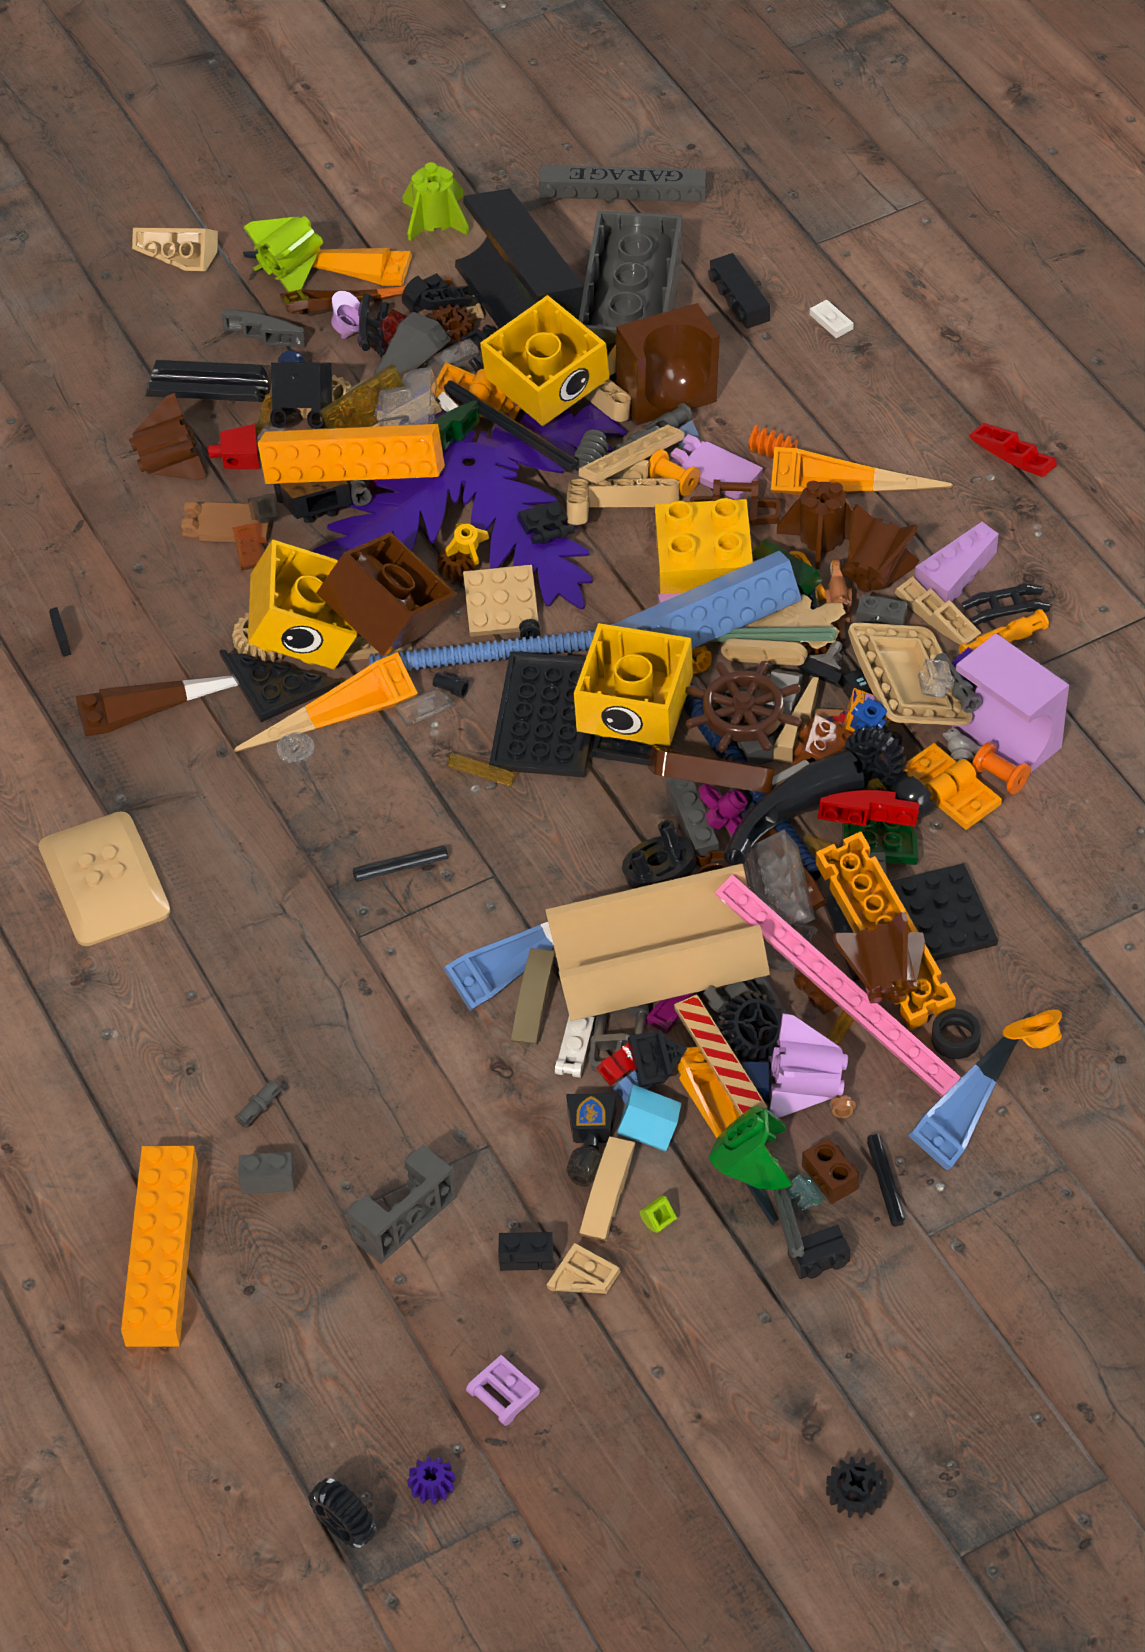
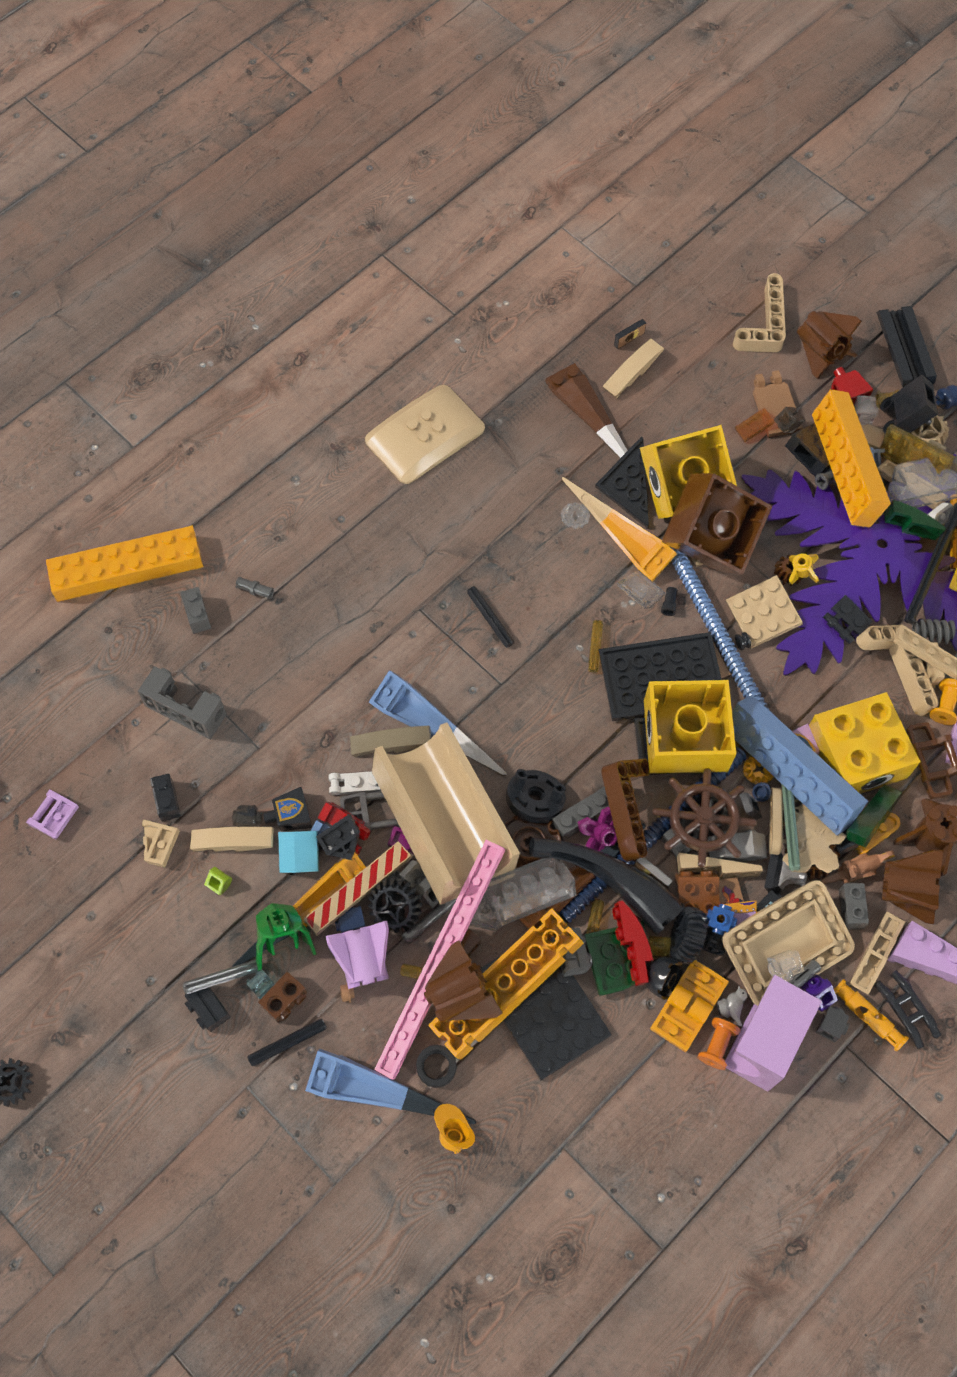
camera: 70 degrees right, 15 degrees up
(112, 640) = (633, 367): none -> tan slope
(127, 495) = (774, 335): none -> tan beam
(724, 656) = (762, 792): none -> dark blue plate
(739, 664) = (751, 806): none -> black tile

